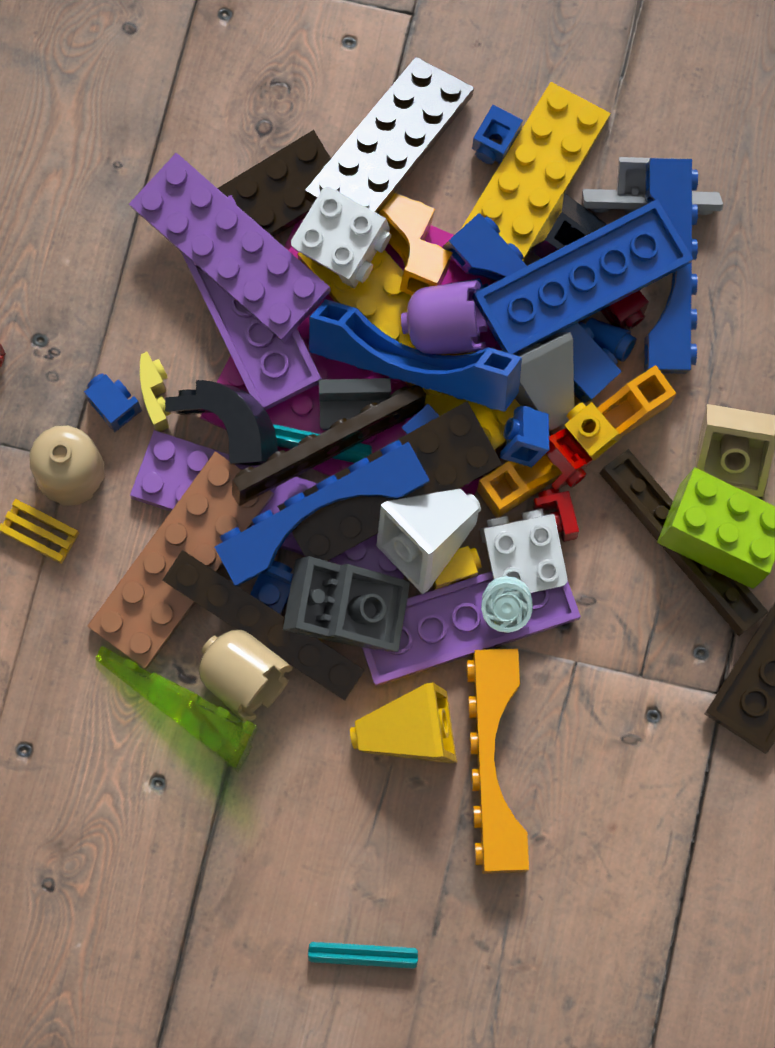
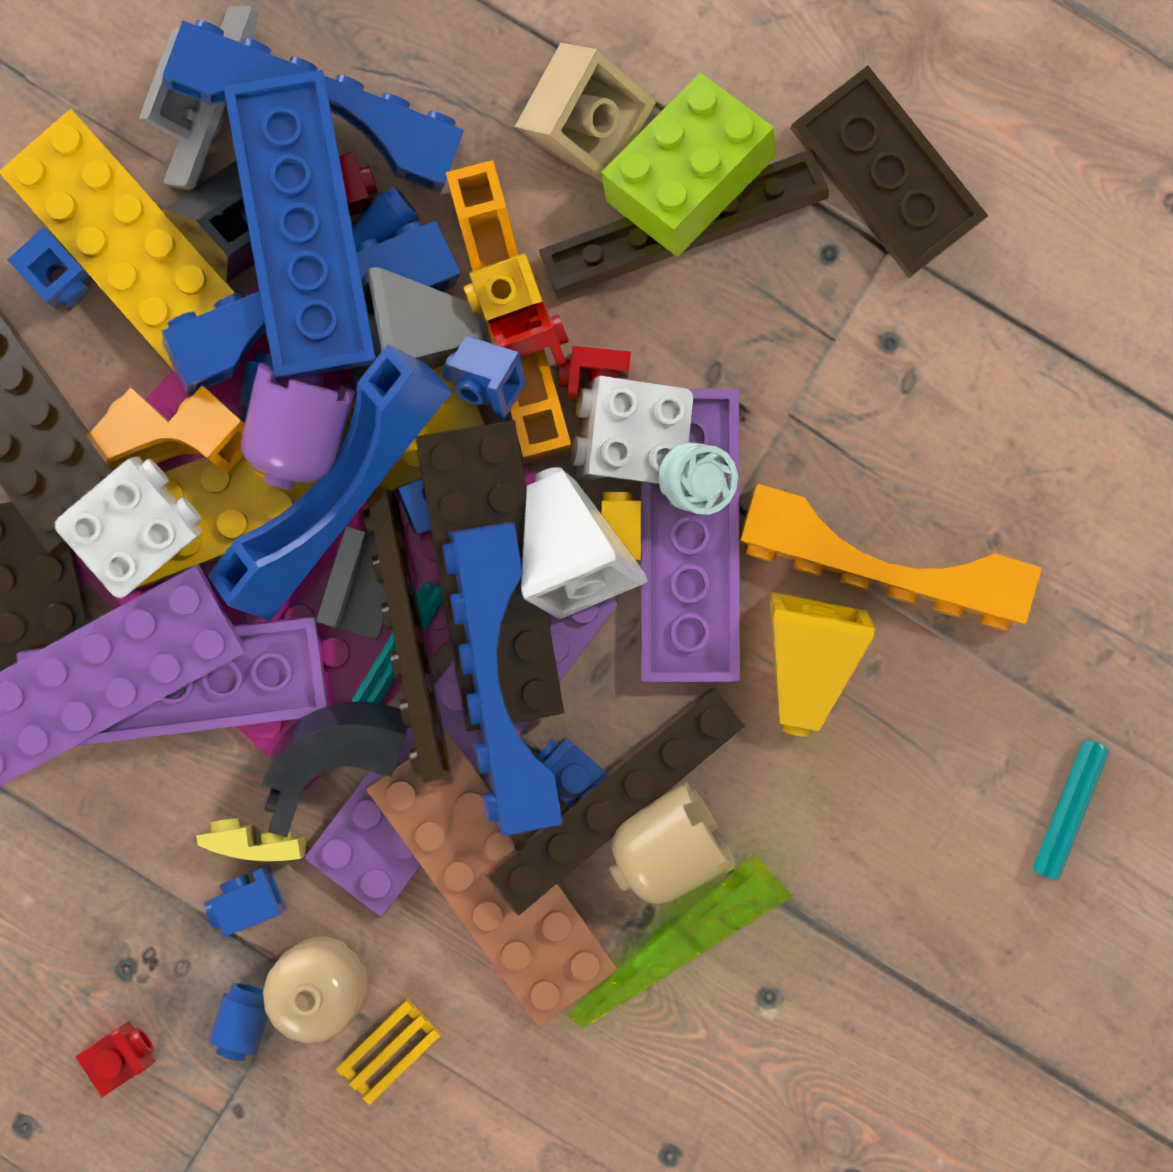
camera: 65 degrees left, 10 degrees up
(26, 423) = (239, 1022): none -> blue brick
(346, 604) = (628, 685): dark grey slope -> none

